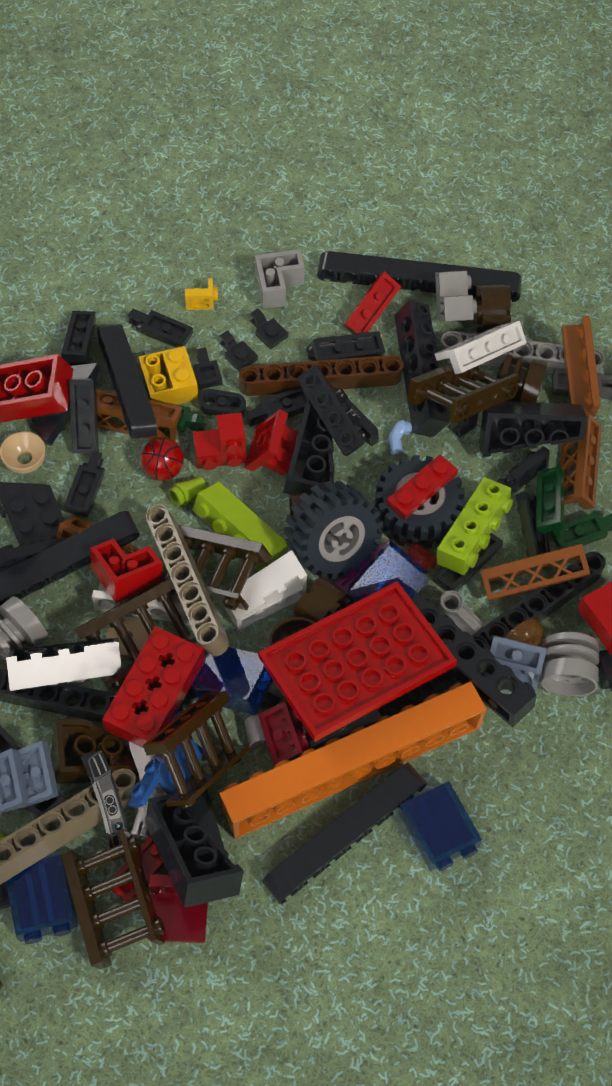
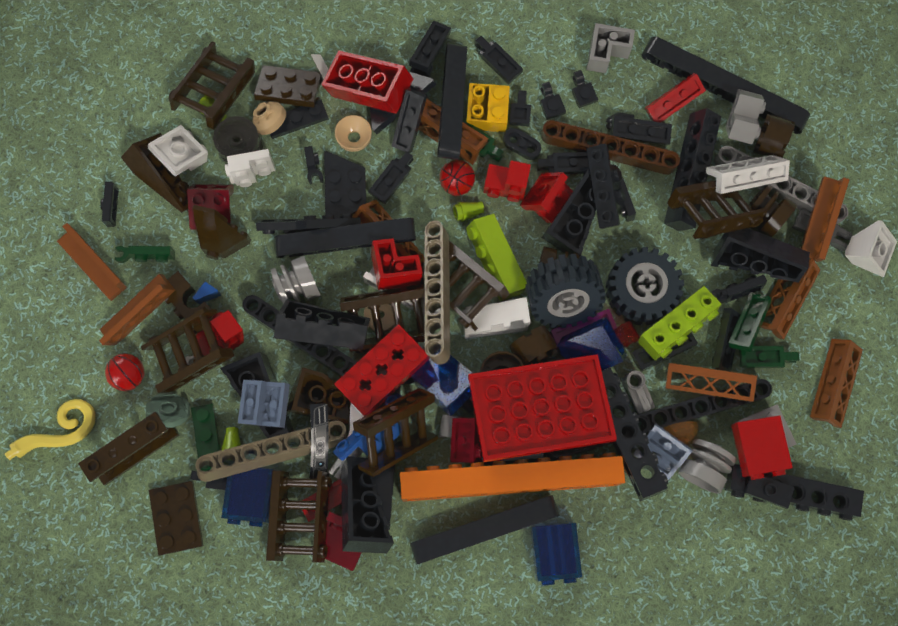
camera: 20 degrees right, 15 degrees up
(201, 298) = (539, 44): yellow bracket -> none
(400, 428) = (649, 220): light blue arm -> none
(422, 486) = (650, 278): red plate -> none

